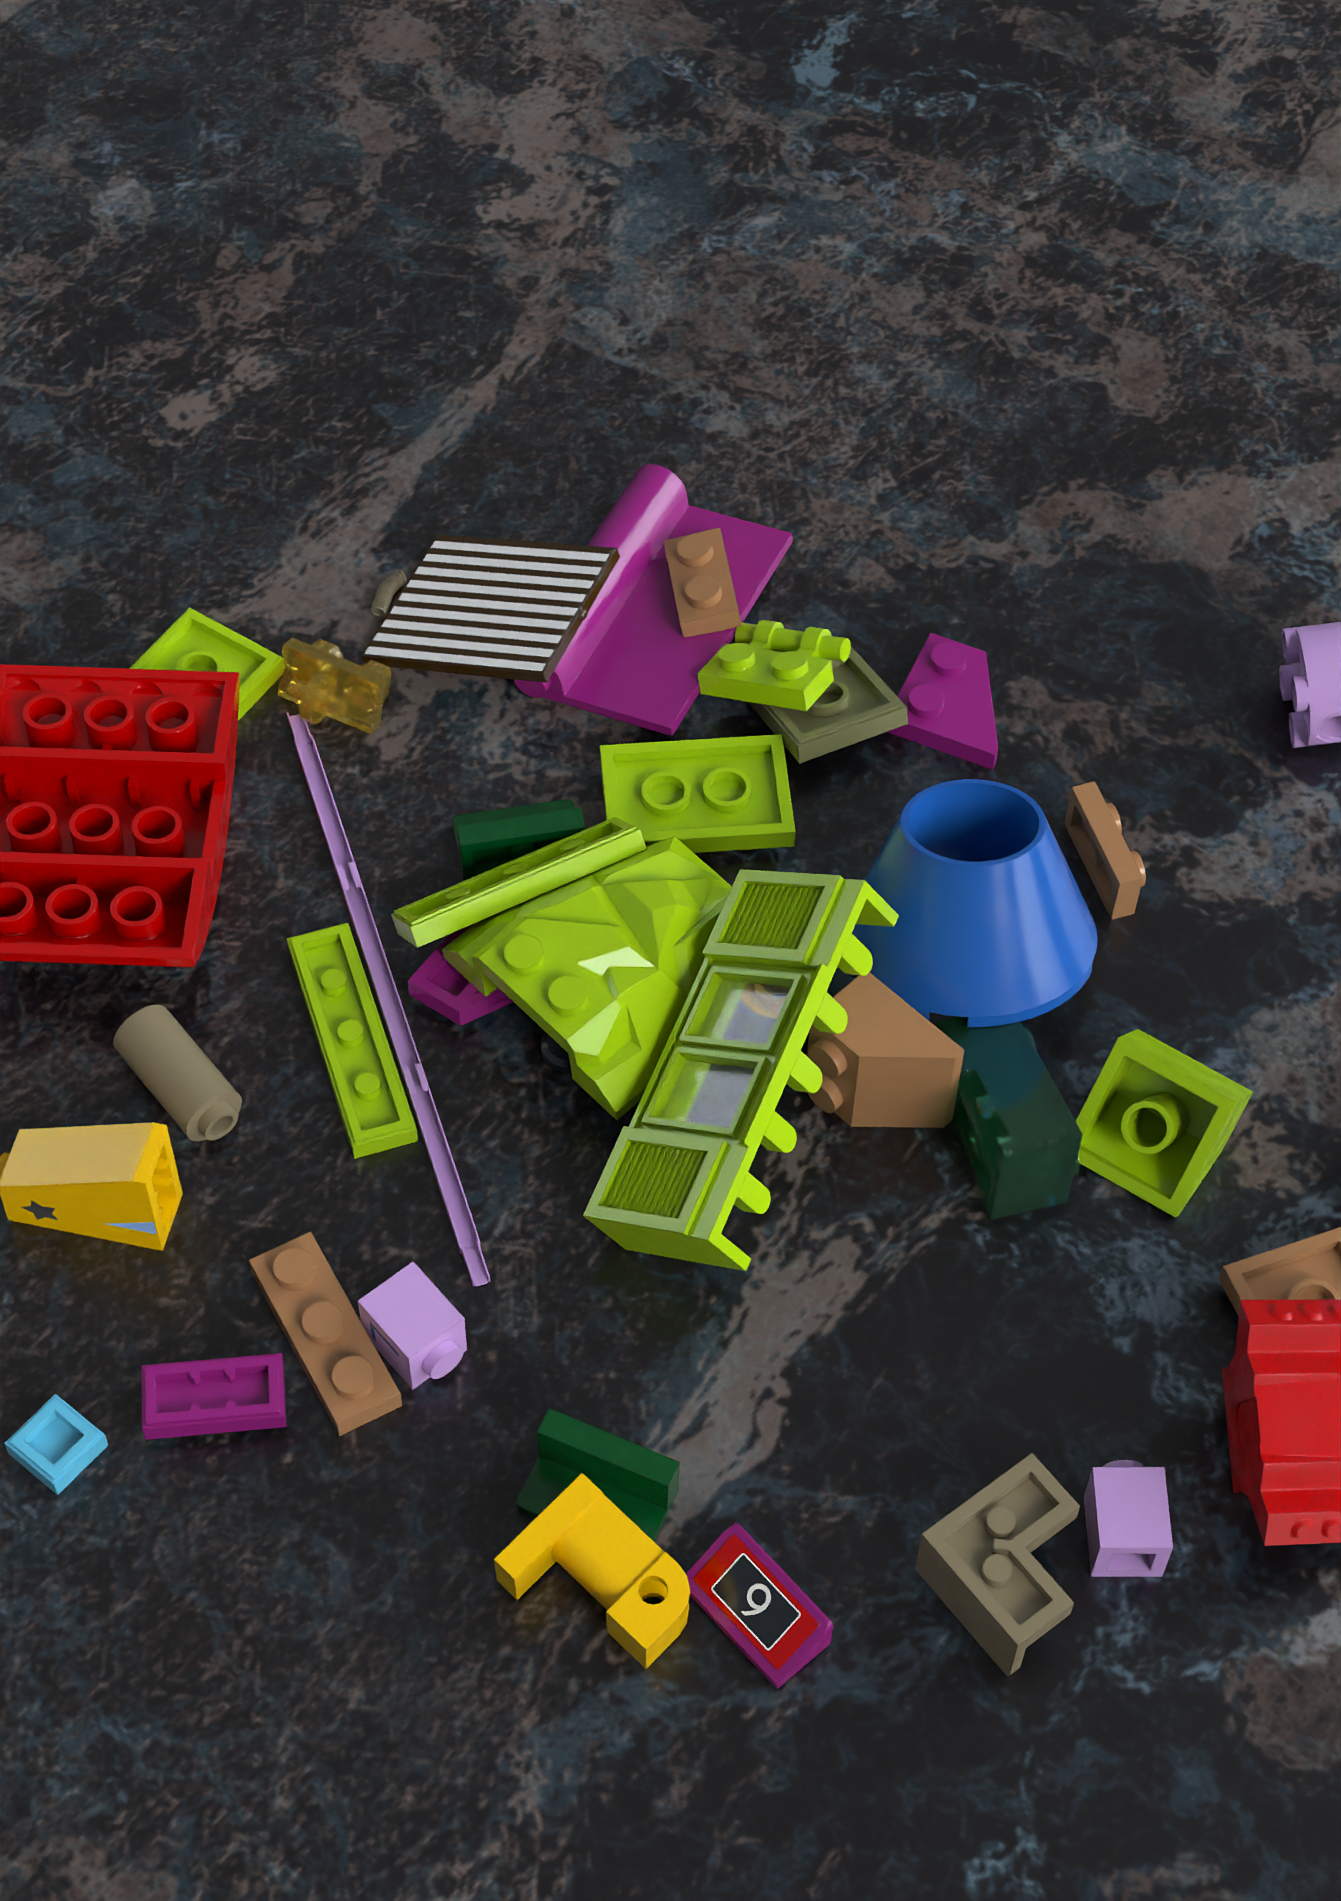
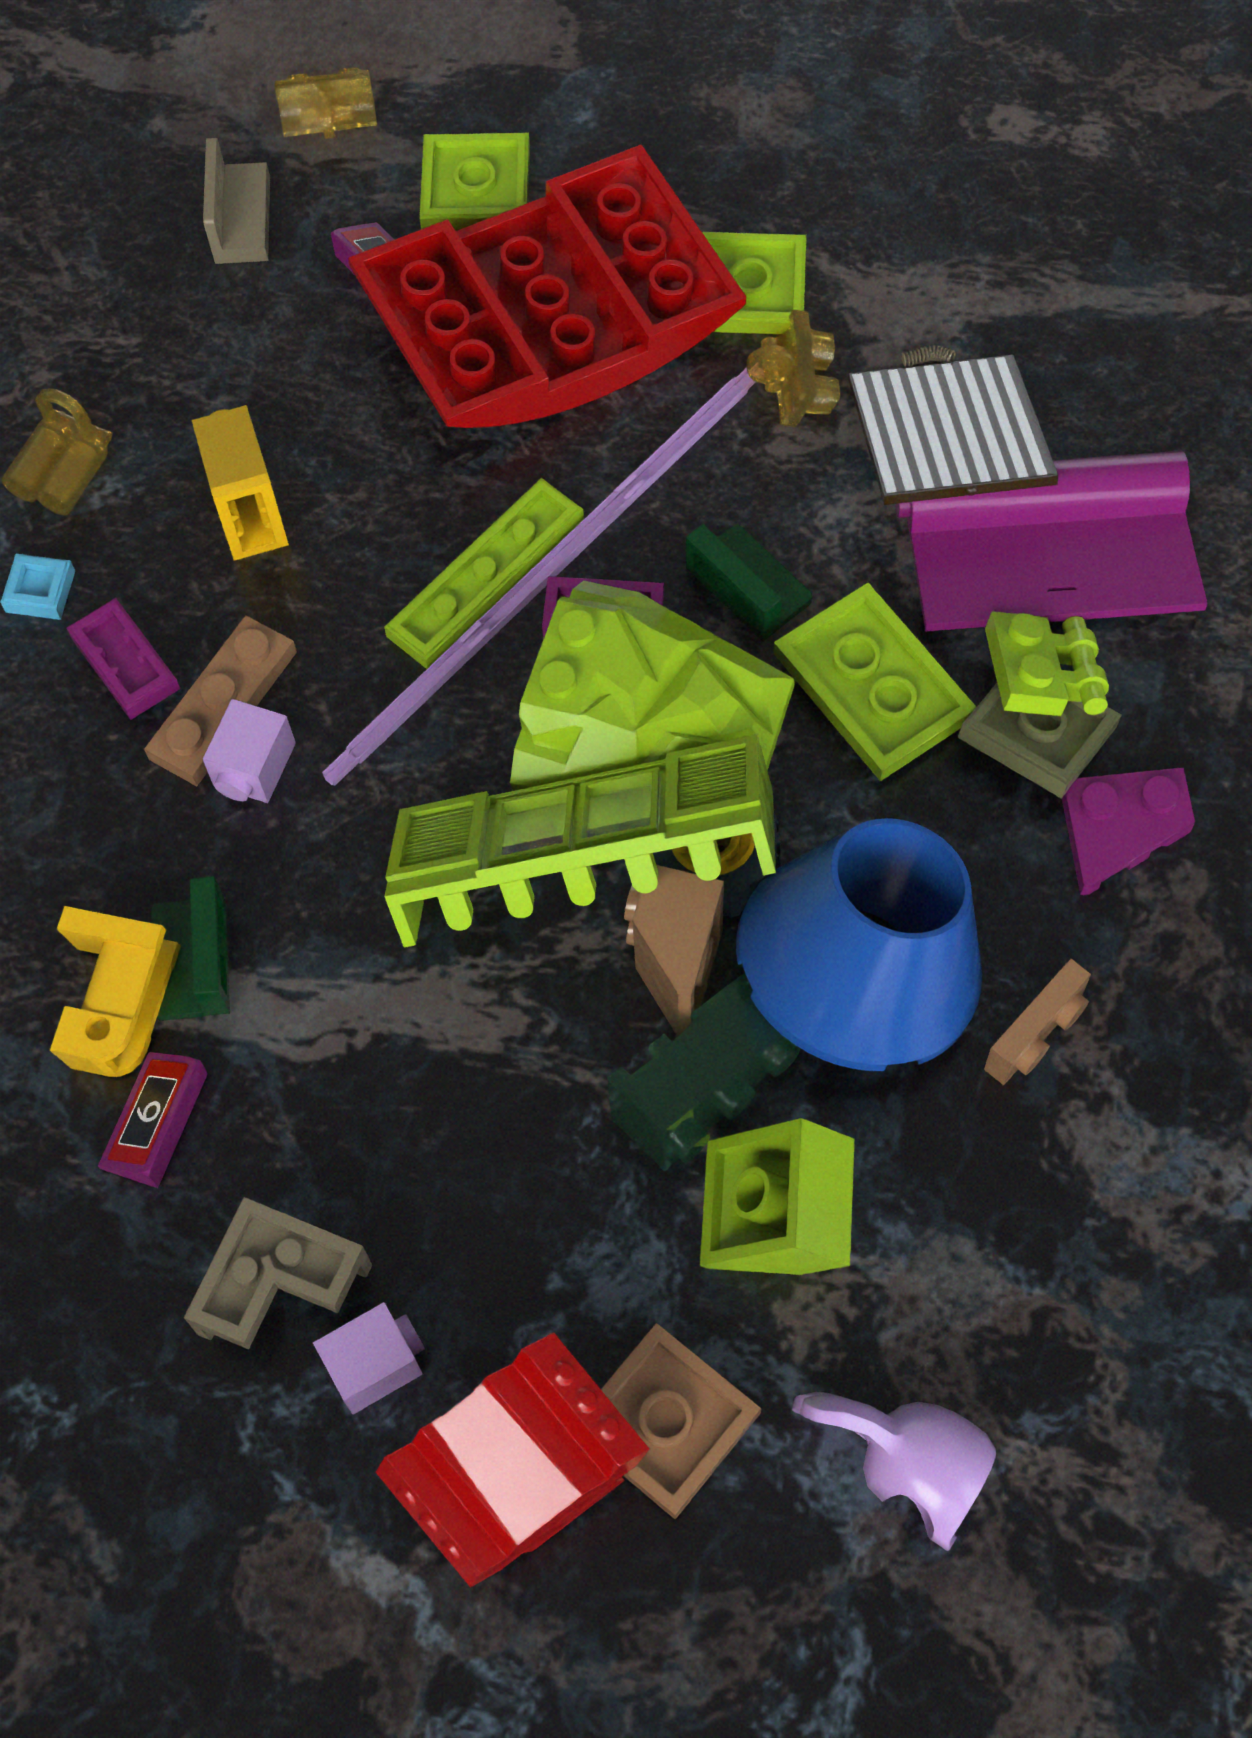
camera: 65 degrees right, 10 degrees up
(178, 1073) = (371, 478): dark tan brick -> none
(517, 881) = (677, 595): lime tile -> none
(702, 583) = (1096, 564): medium nougat plate -> none

